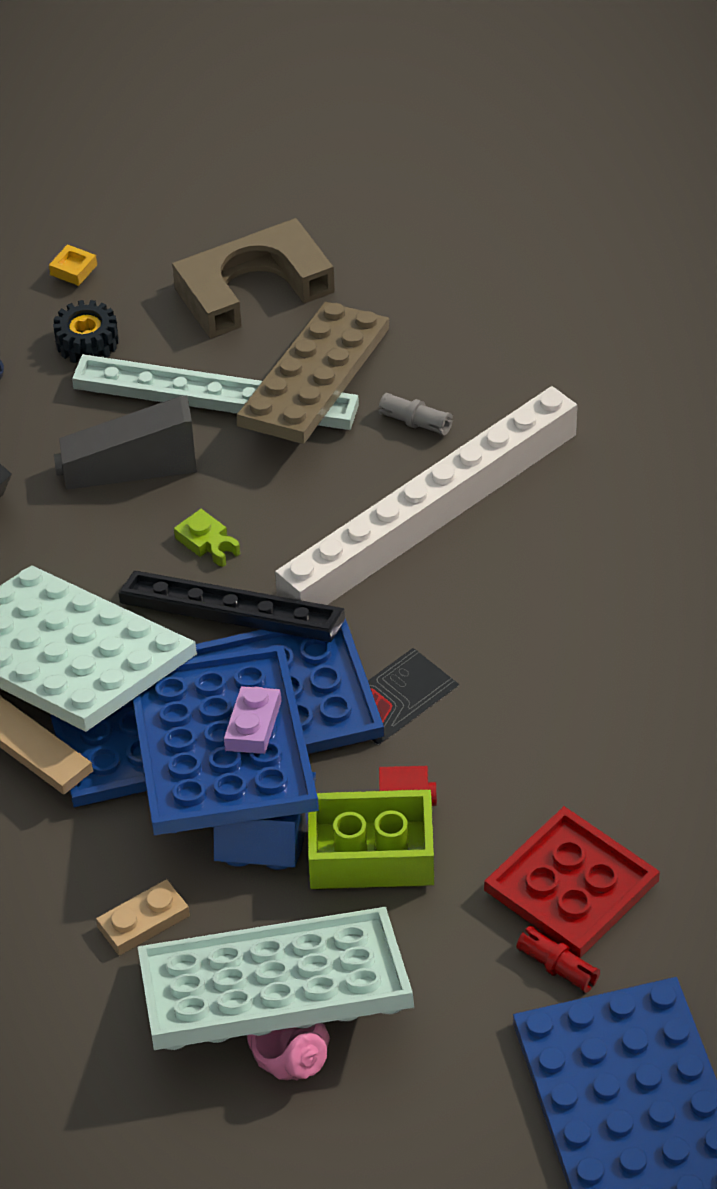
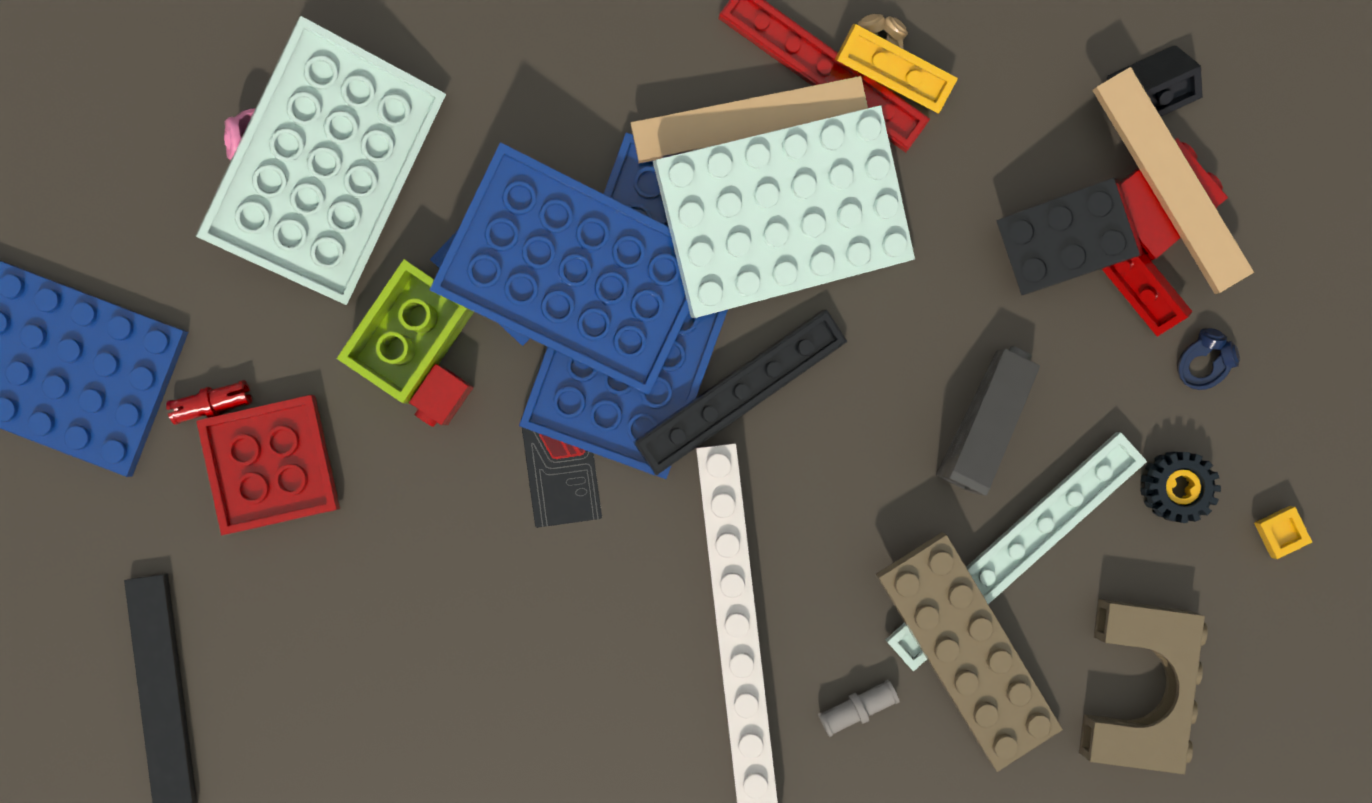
camera: 125 degrees right, 40 degrees up
(143, 917) = (478, 120): tan plate -> none
(205, 534) = (851, 429): lime plate -> none
(252, 720) = (561, 300): lavender plate -> none

